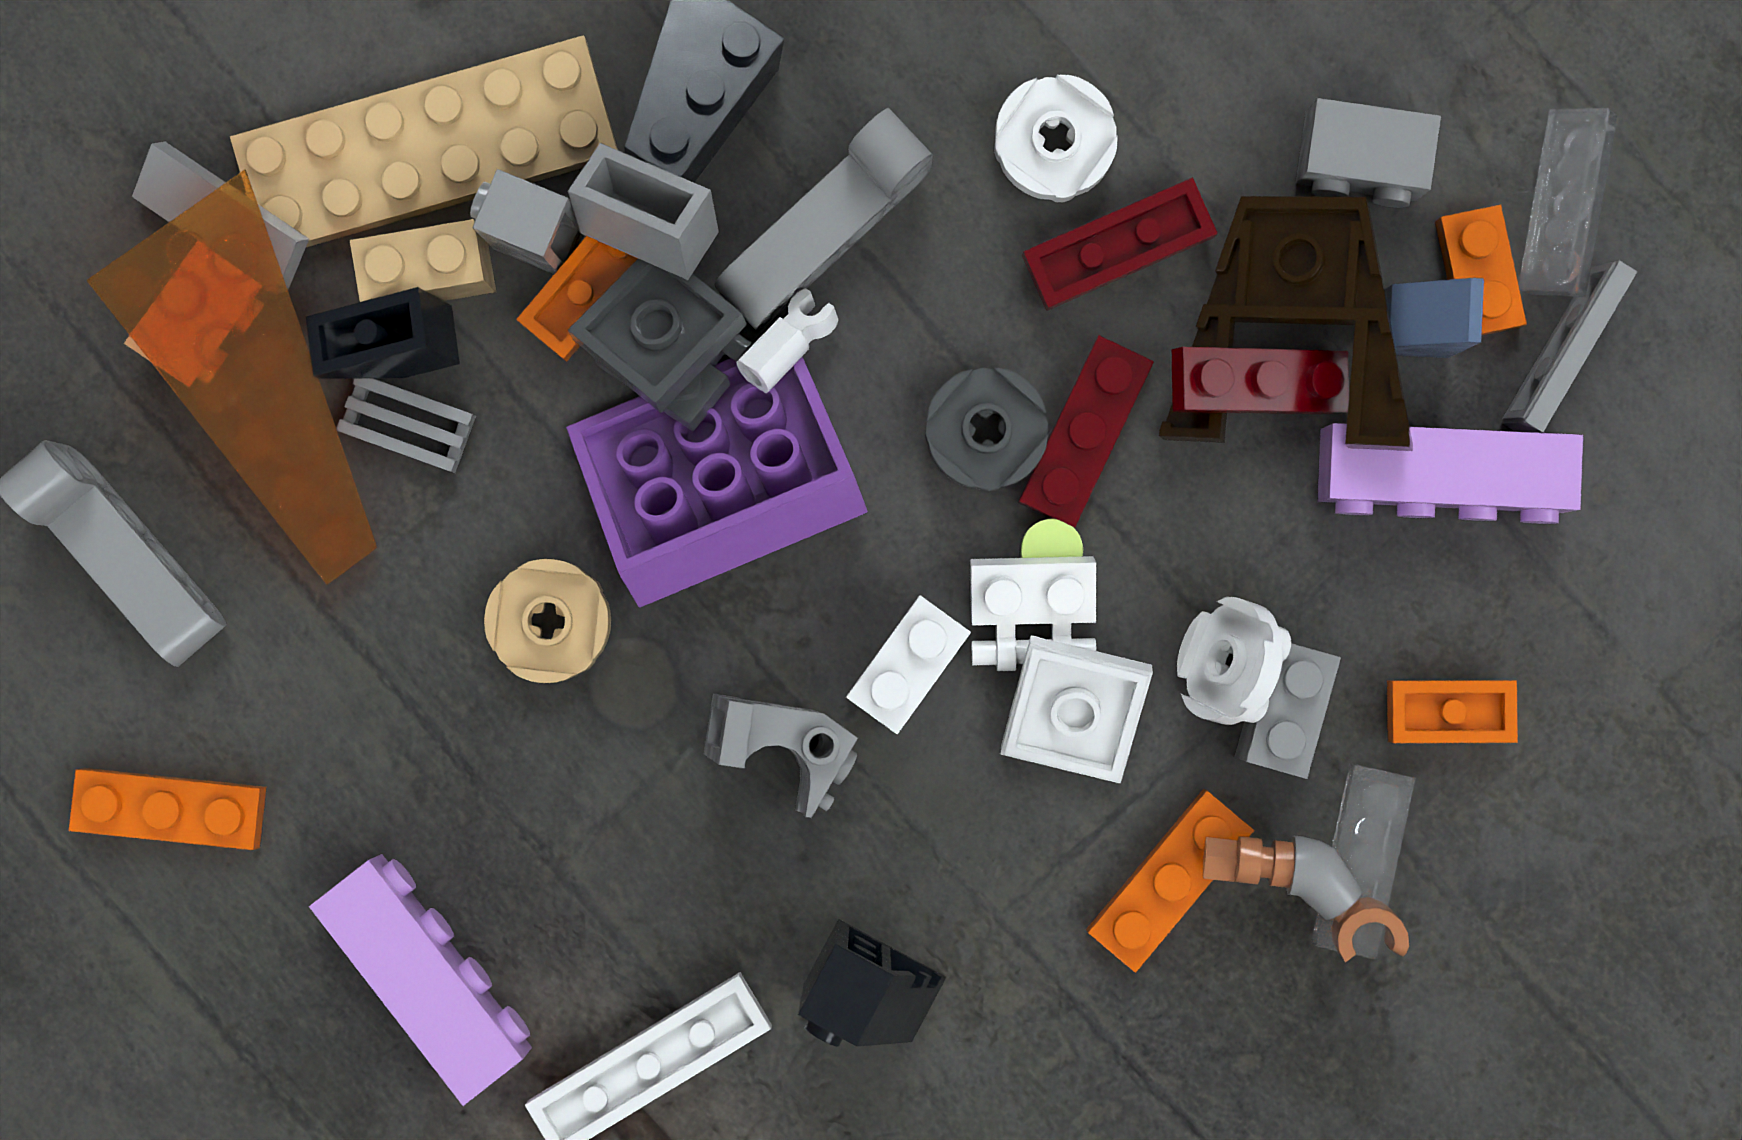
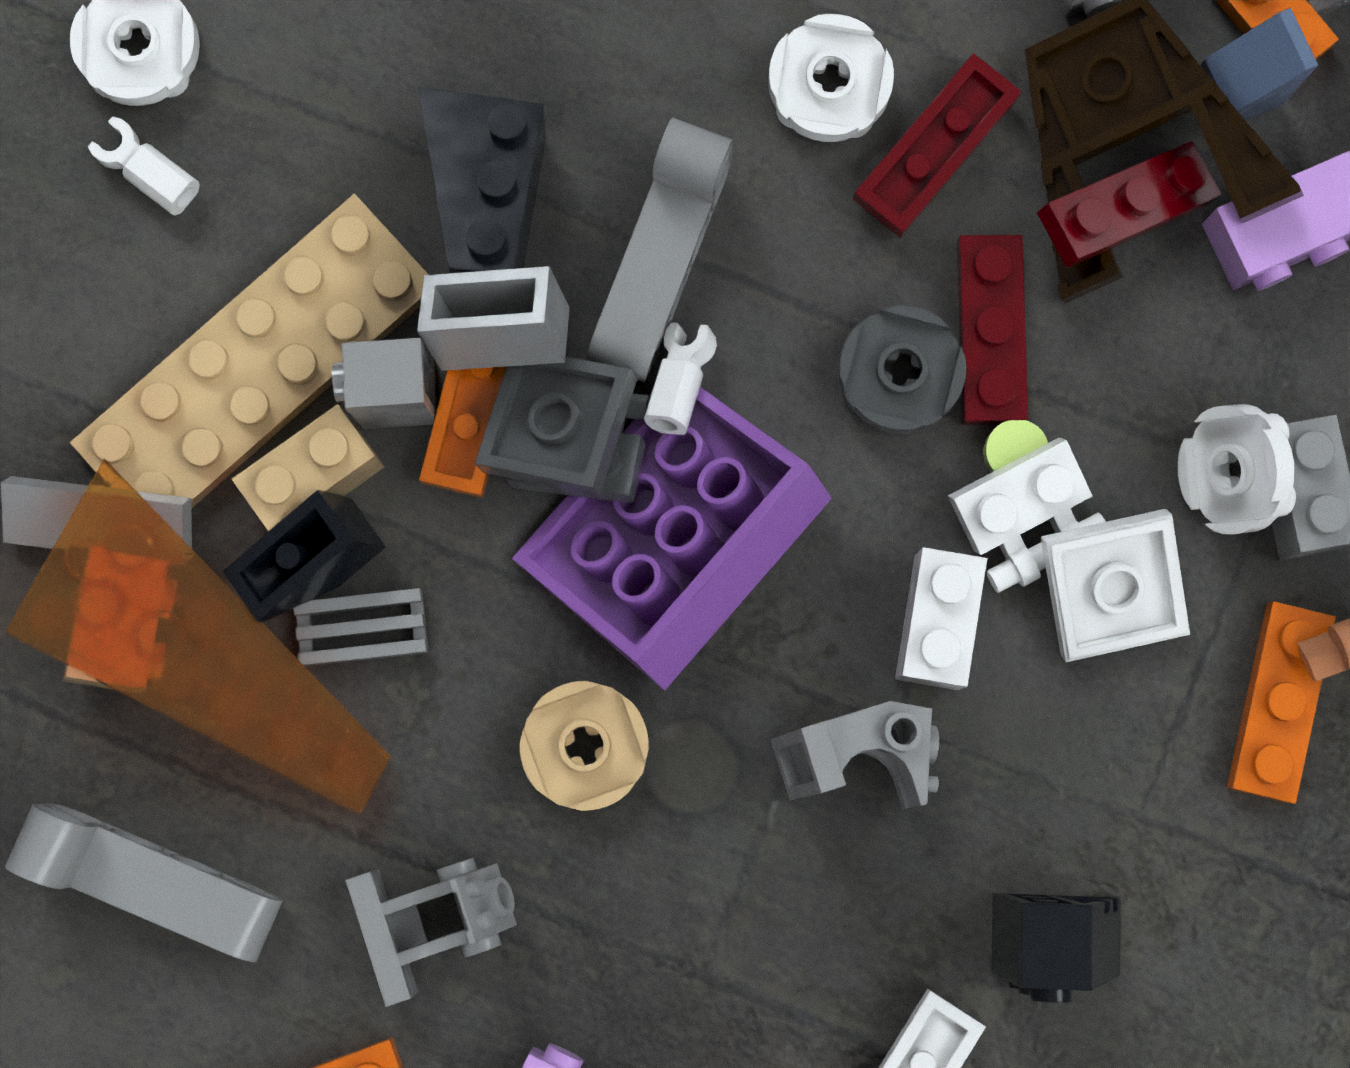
camera: 25 degrees left, 5 degrees down
(310, 700) = (396, 928): none -> light grey tile

